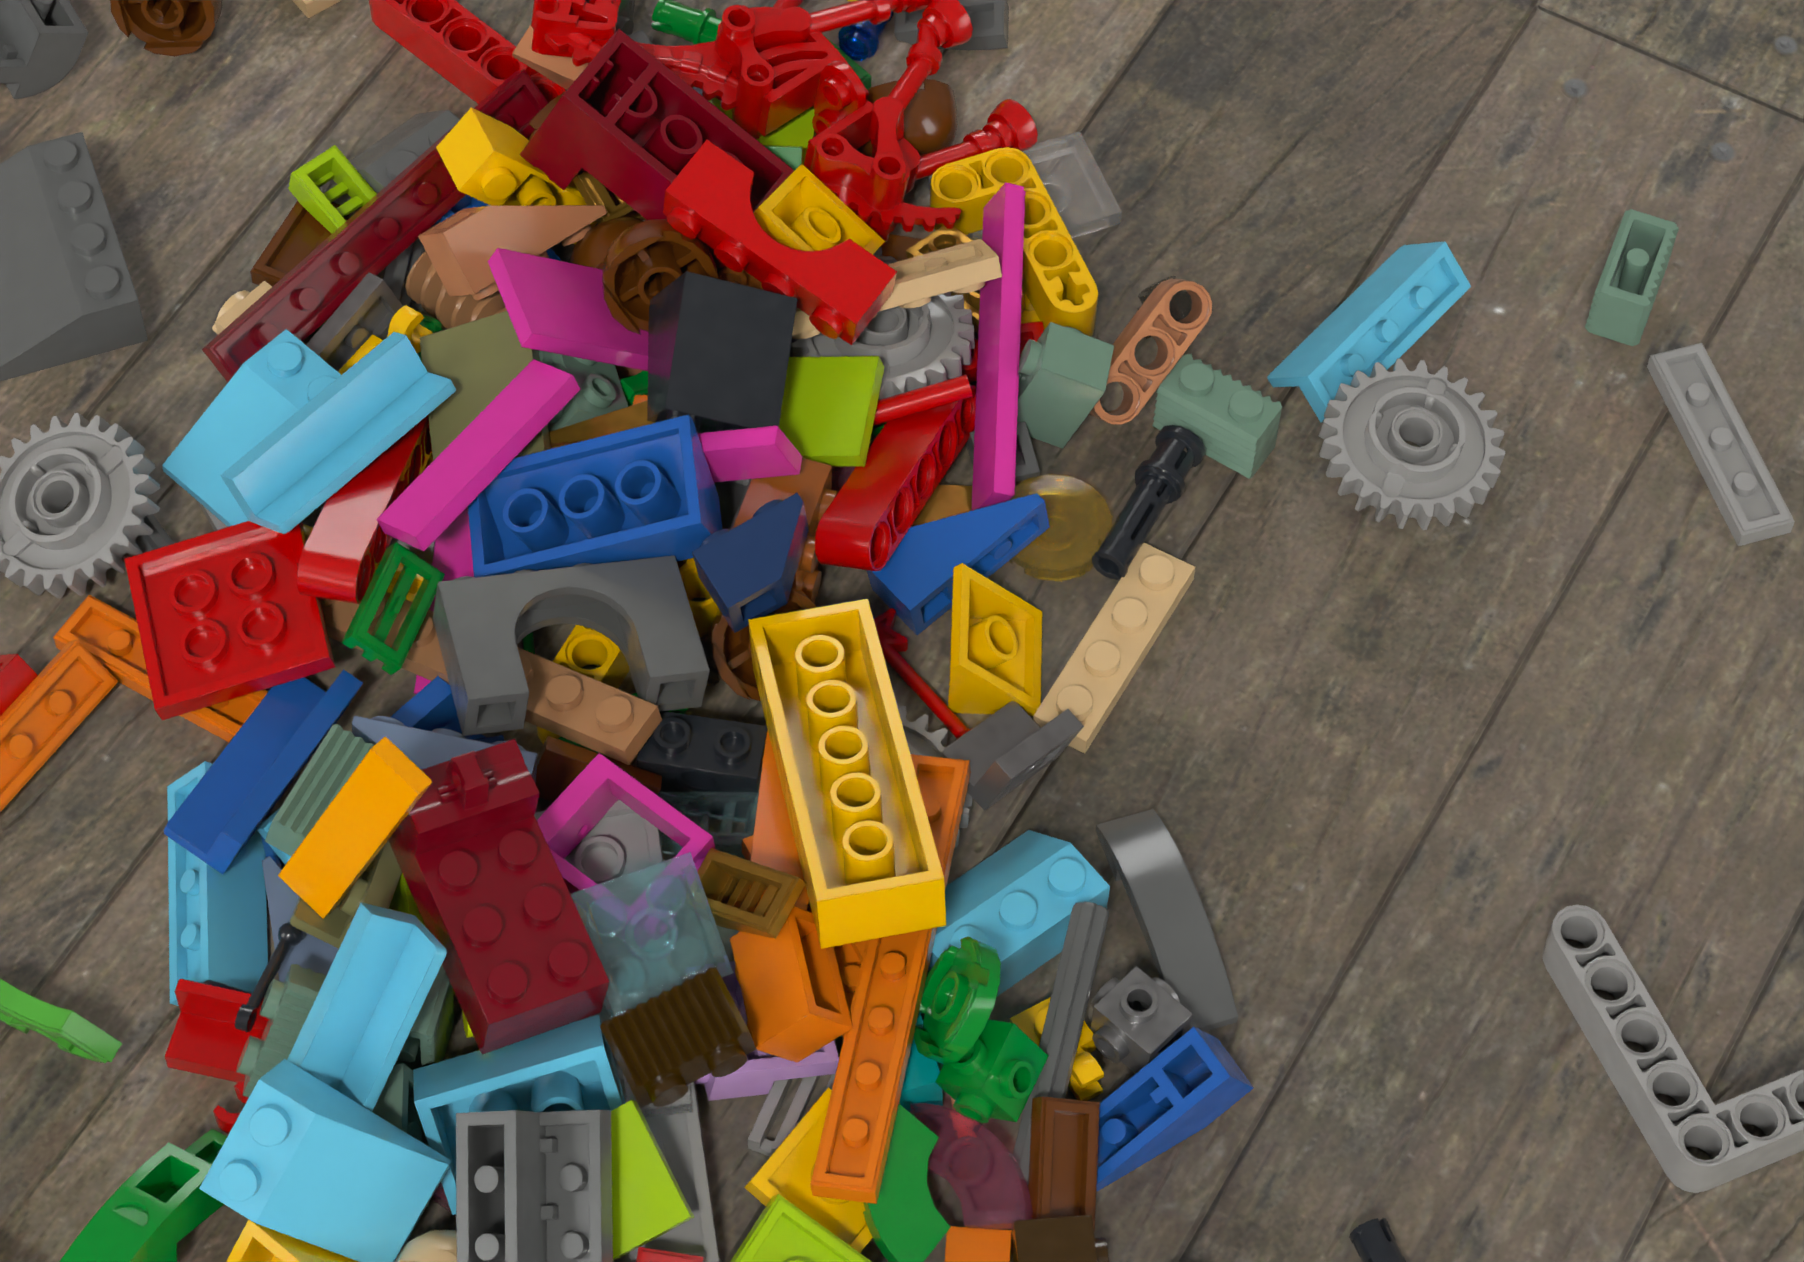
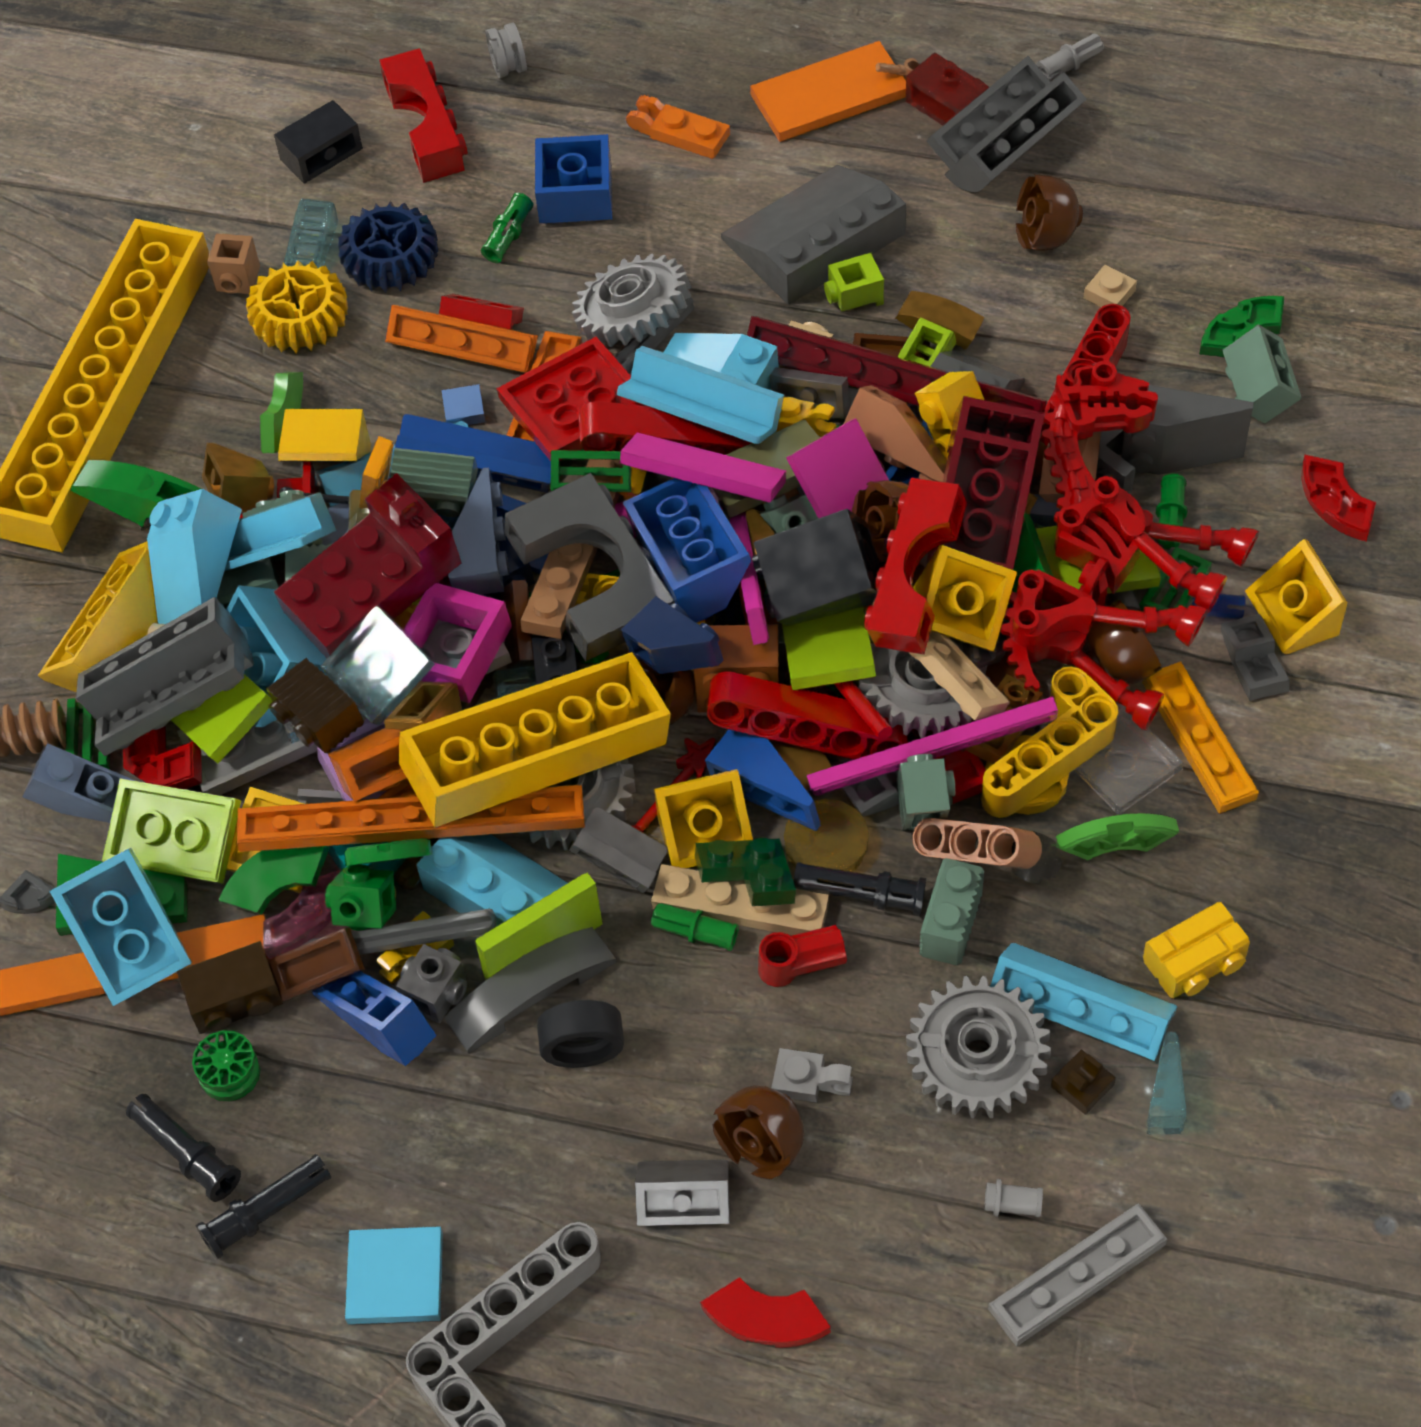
camera: 80 degrees right, 0 degrees up
(138, 778) = (463, 405): none -> medium blue tile
(146, 1106) = (236, 477): none -> pearl gold slope
(147, 956) = (323, 435): none -> yellow slope
(170, 253) = (855, 283): none -> lime brick
(264, 174) = (942, 312): none -> pearl gold slope
(1062, 105) = (1202, 739): none -> light orange tile
(1078, 600) = (755, 861): none -> dark green plate
(1110, 851) = (554, 916): none -> lime tile
(1139, 701) = (695, 926): none -> green axle
(1169, 218) = (1117, 833): none -> bright green tile
(1222, 595) = (803, 953): none -> red piece
(1279, 858) = (580, 1033): none -> black tyre
(1346, 197) = (1196, 951): none -> yellow brick
(1390, 642) = (804, 1074): none -> light grey plate
(1469, 693) = (761, 1128): none -> reddish brown cylinder
(1478, 359) = (1083, 1081): none -> dark brown tile
(1516, 279) = (1167, 1104): none -> clear light blue slope
(1516, 809) = (682, 1192): none -> flat silver panel
(1548, 1177) = (394, 1275): none -> medium azure tile
(1611, 484) = (1013, 1199): none -> light grey pin
(1631, 277) = (1196, 1165): sand green brick -> none
(1704, 772) = (765, 1318): none -> red tile

